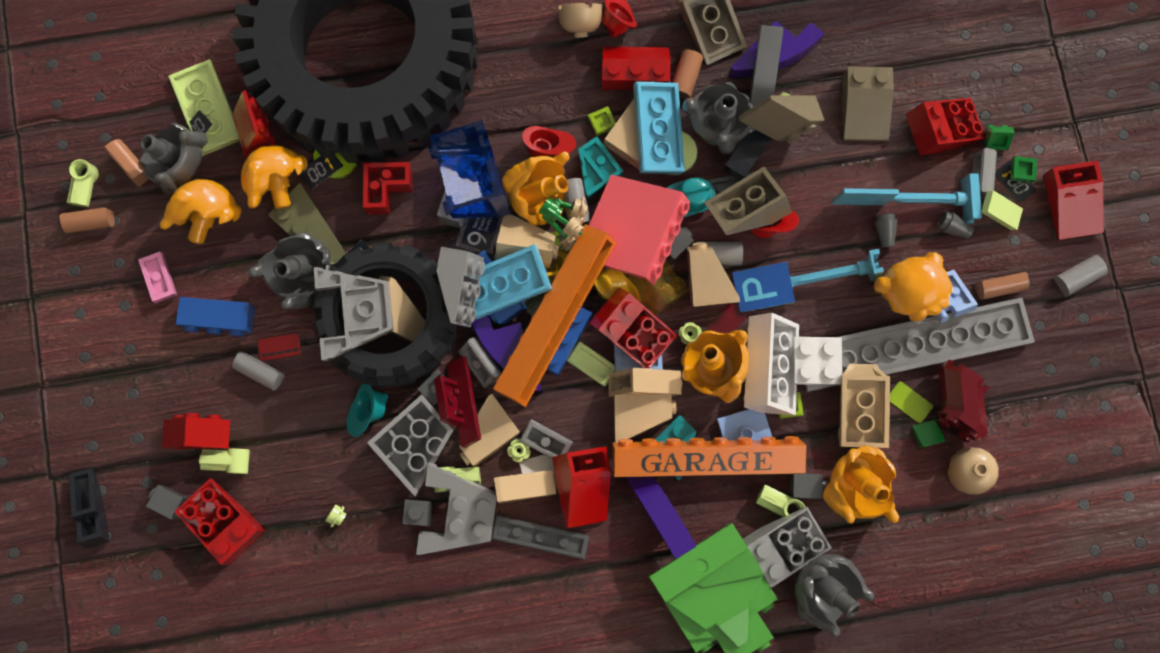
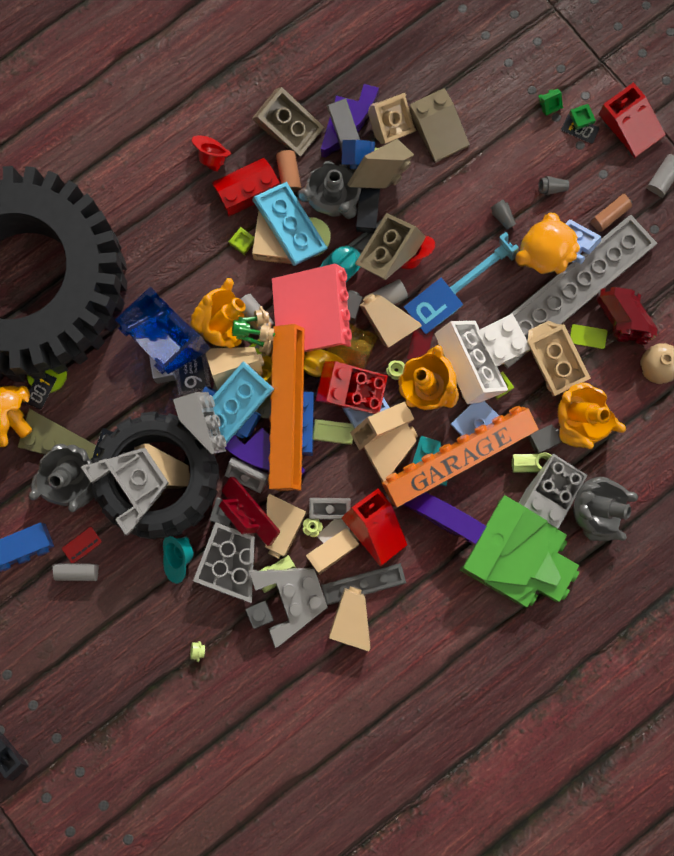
camera: 25 degrees left, 0 degrees up
(165, 501) = (59, 710): dark grey brick -> none
(193, 432) = (52, 644): red brick -> none
(219, 522) = (108, 703): red slope -> none
(225, 460) = (92, 652): yellowish green piece -> none
(381, 181) = (94, 374): red brick -> none
(506, 568) = (351, 621): none -> tan slope
(547, 142) = (208, 278): red piece -> none
(580, 18) = (183, 169): tan cylinder -> none
(597, 166) = (257, 277): teal wing -> none
(764, 85) = (354, 151): none -> blue brick
(820, 72) = (391, 119): none -> tan slope
(927, 434) = (613, 353): green slope -> none
(944, 125) = (506, 112): red slope -> none
(968, 197) = (552, 159): medium azure piece -> none
(985, 165) = (554, 135): light grey brick -> none
(1002, 210) = (582, 156): yellowish green tile -> none

